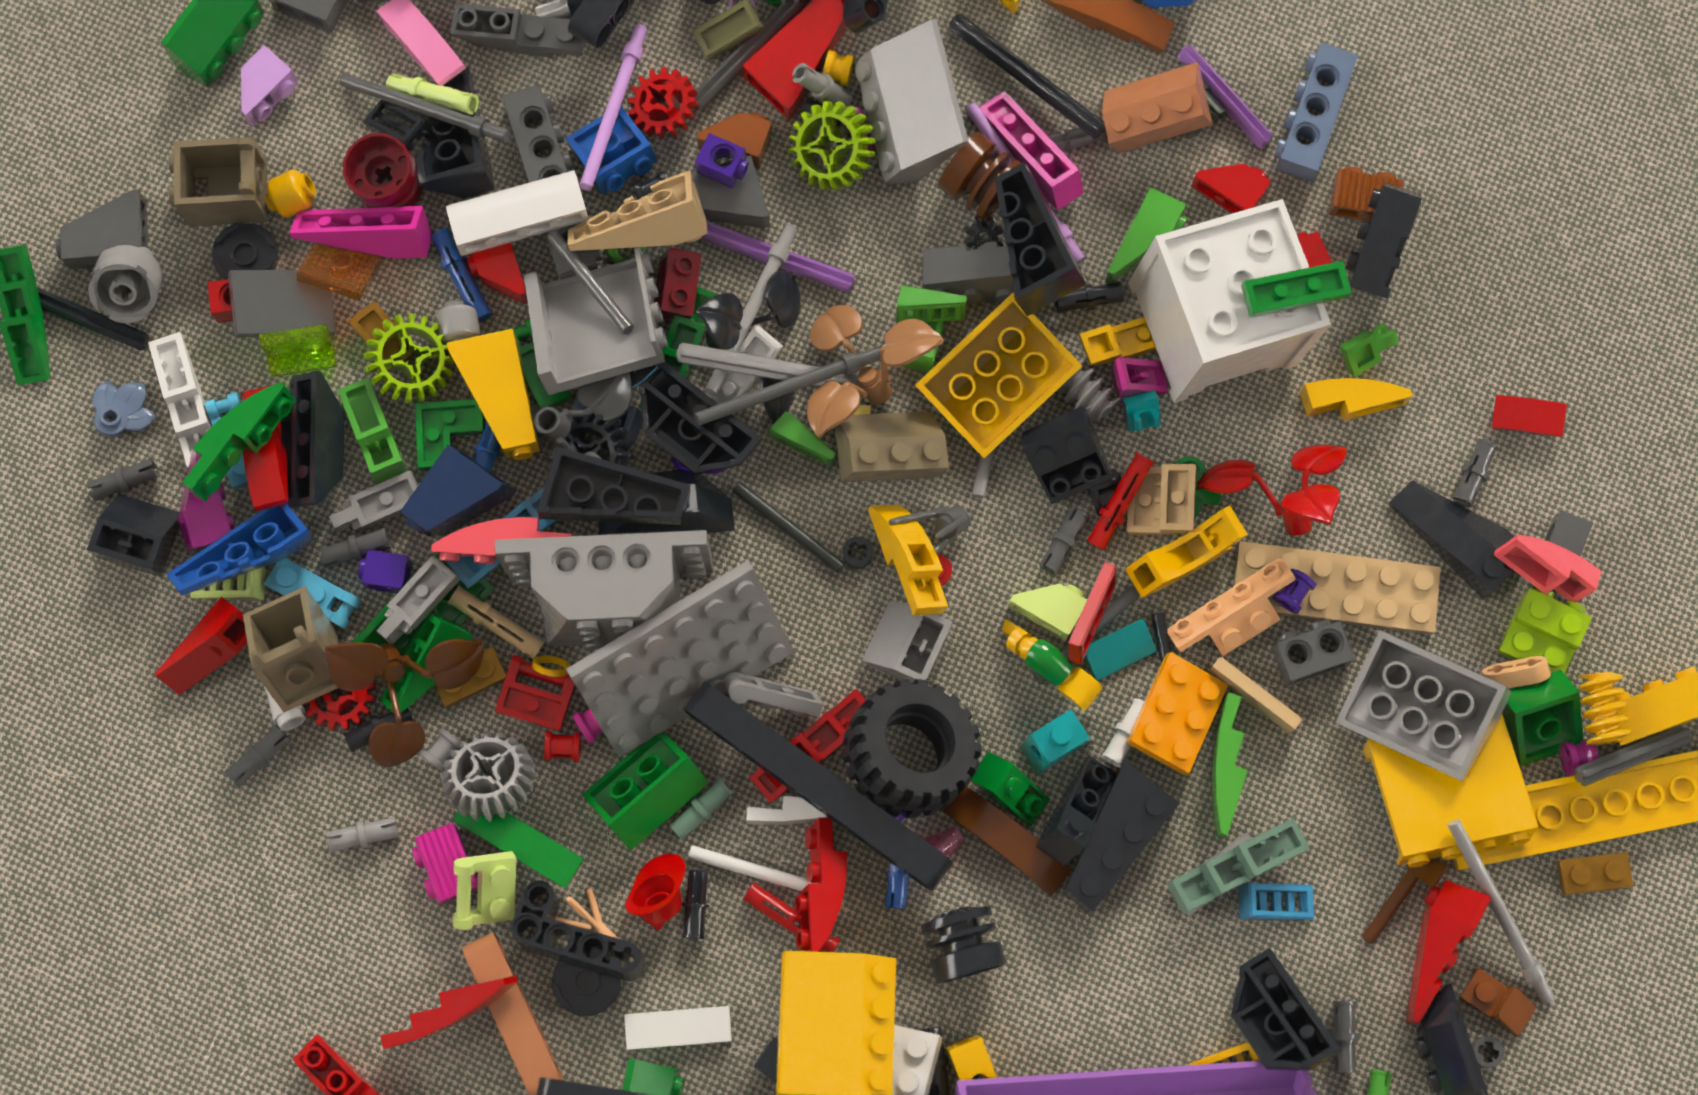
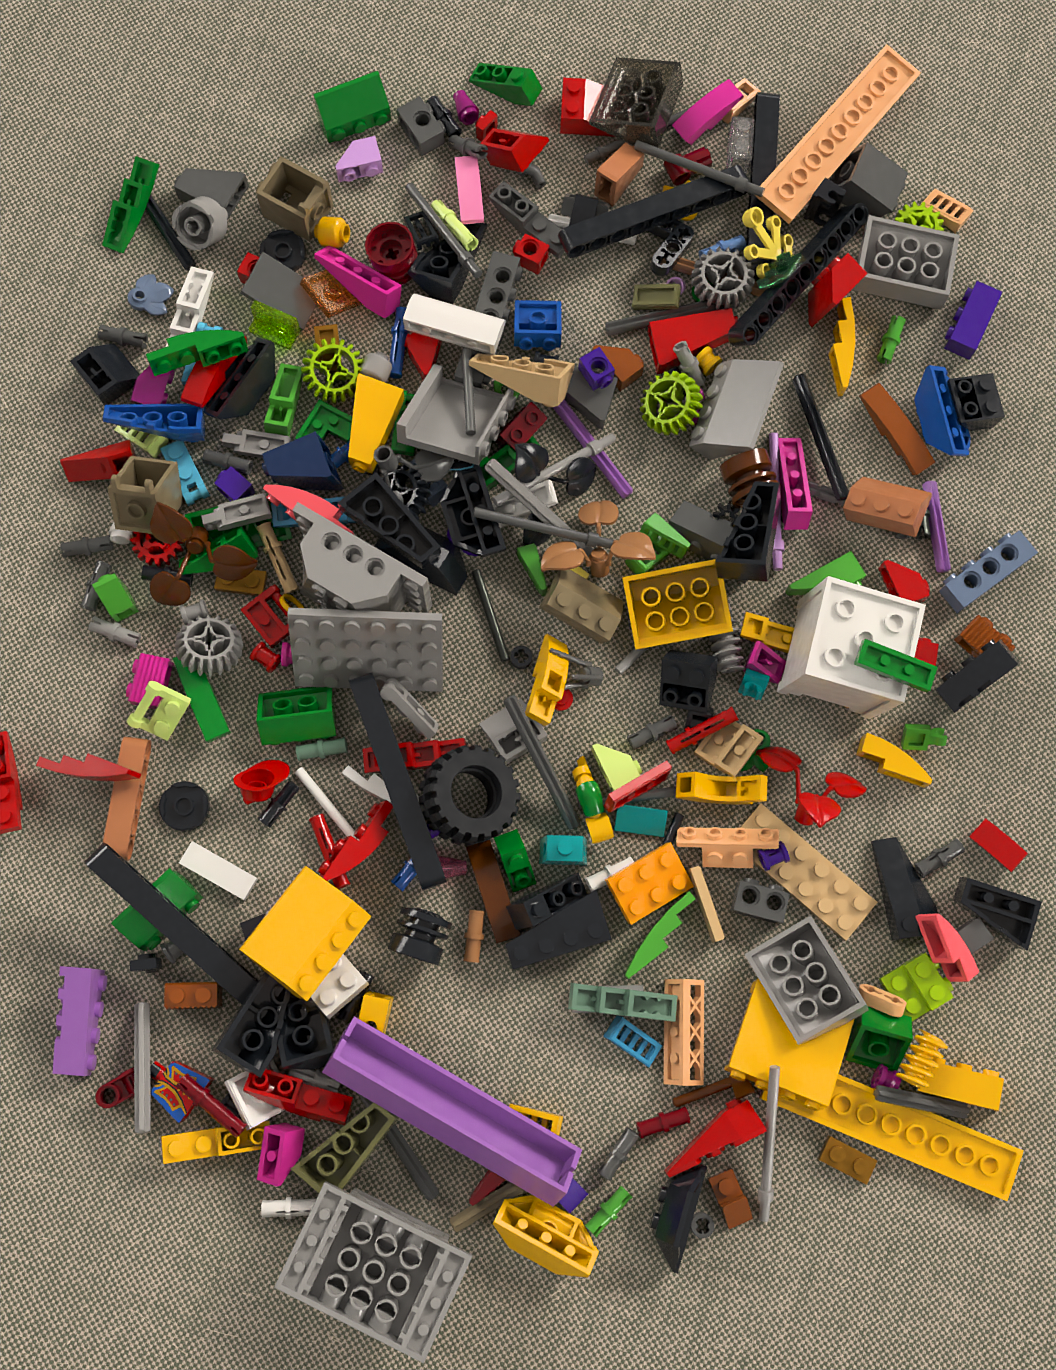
camera: 30 degrees right, 0 degrees up
(301, 795) = (91, 598): none -> dark grey pin
(338, 792) = (115, 597): none -> bright green slope
(554, 58) = (531, 262): none -> red brick
(580, 939) = (193, 779): black beam -> none
(594, 923) = (208, 773): light nougat plant -> none
(631, 56) = (587, 277): lavender bar -> none
(669, 88) = (598, 315): red gear -> none
(967, 656) = (542, 762): none -> dark grey axle
(1021, 905) = (474, 936): none -> medium nougat pin
(1090, 296) = (768, 594): black pin -> none
(1279, 1018) = (583, 1114): black wedge -> none
(1323, 860) = (678, 1034): none -> light nougat fence
(1370, 969) = (663, 1122): none -> dark red pin
(1578, 486) = (1001, 910): none -> black wedge

